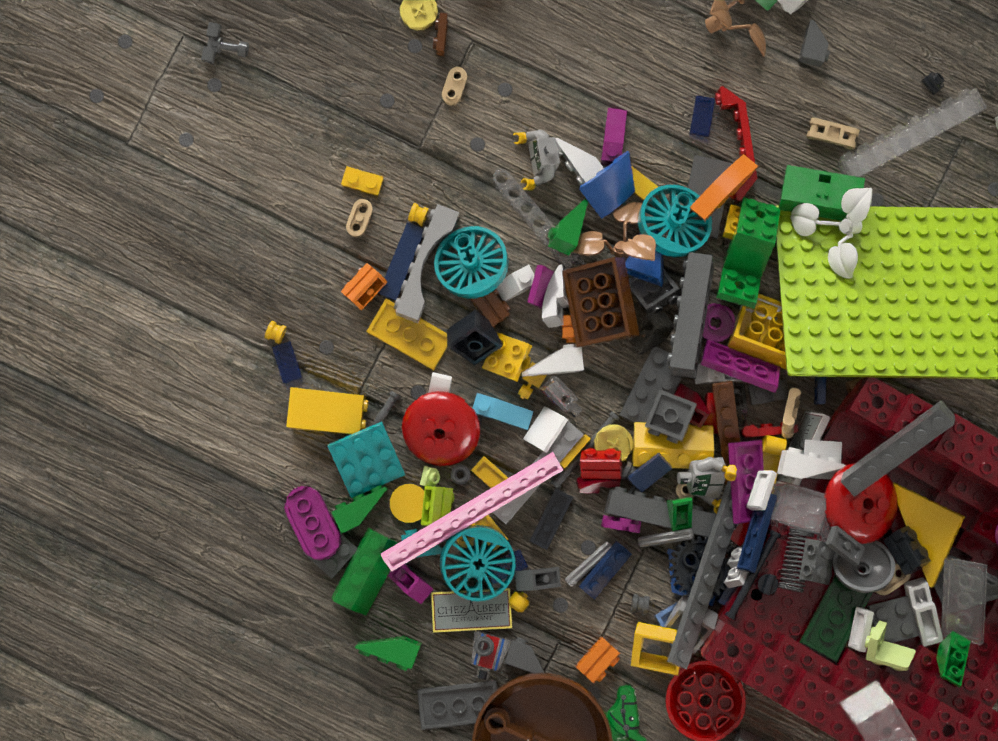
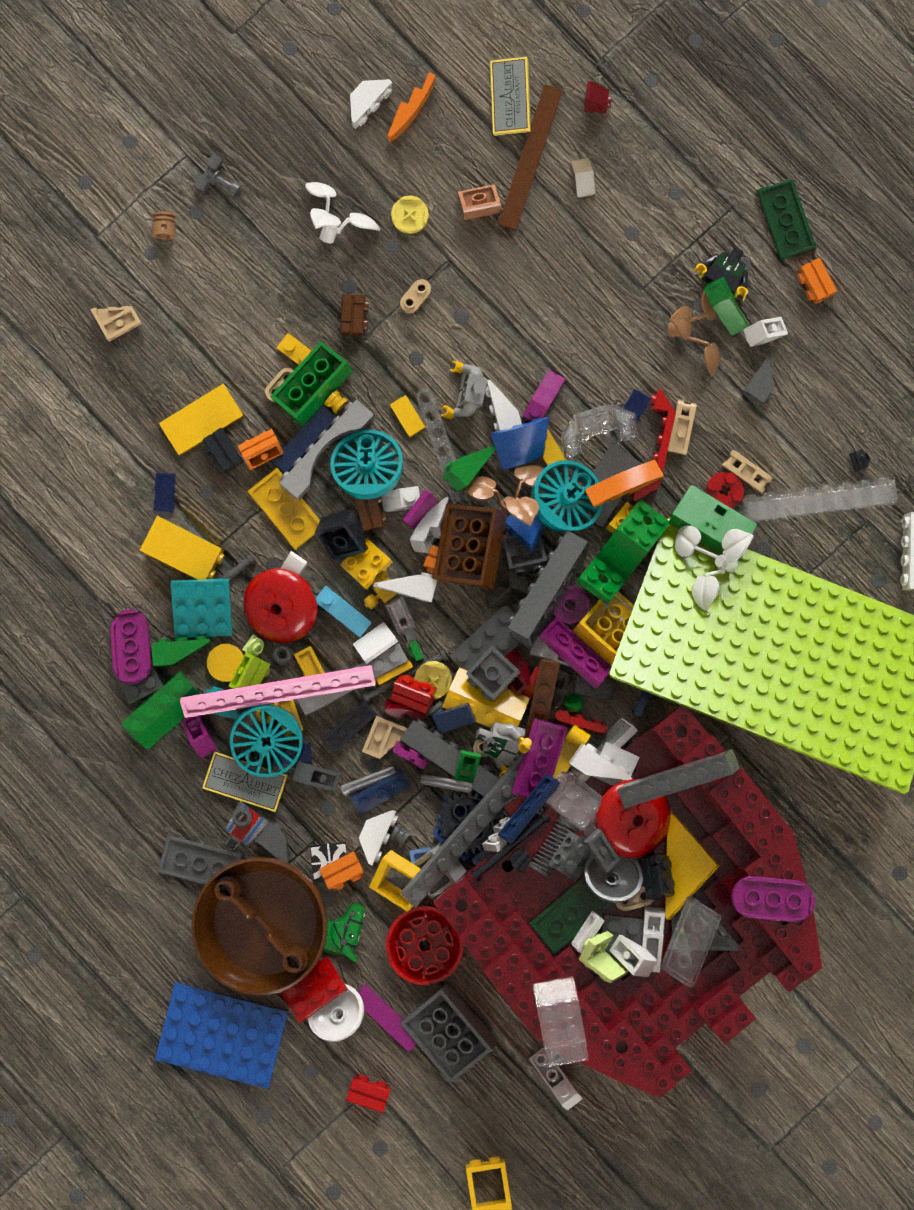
camera: 20 degrees right, 0 degrees up
(177, 216) = (116, 320): none -> tan wing
(188, 108) = (163, 225): none -> medium nougat piece
(275, 332) = (164, 460): yellow wheel -> none
(295, 280) = (200, 419): none -> yellow tile
(327, 301) = (223, 451): none -> black brick
(346, 44) = (329, 222): none -> white plant
(388, 205) = (312, 383): none -> green slope
(395, 649) = (164, 792): green slope -> none
(402, 125) = (353, 315): none -> reddish brown brick
(441, 26) = (424, 238): reddish brown plate -> none
(491, 202) = (407, 416): none -> yellow tile
(518, 601) = (291, 790): yellow piece -> none
(573, 652) = (323, 855): none -> sticker
(586, 423) = (415, 652): none -> green plate
(587, 517) = (382, 737): none -> tan wing
(616, 612) = (375, 834): none -> white slope
(677, 137) = (596, 422): none -> clear slope
(756, 114) = (682, 428): none -> tan plate
(756, 414) = (574, 703): none -> green tile
(761, 490) = (548, 772): white tile -> none
(791, 412) = (605, 712): tan plate -> none
(822, 149) = (729, 481): none -> red plate
(914, 636) = (633, 956): none -> white slope
(953, 657) = (659, 989): green slope -> none

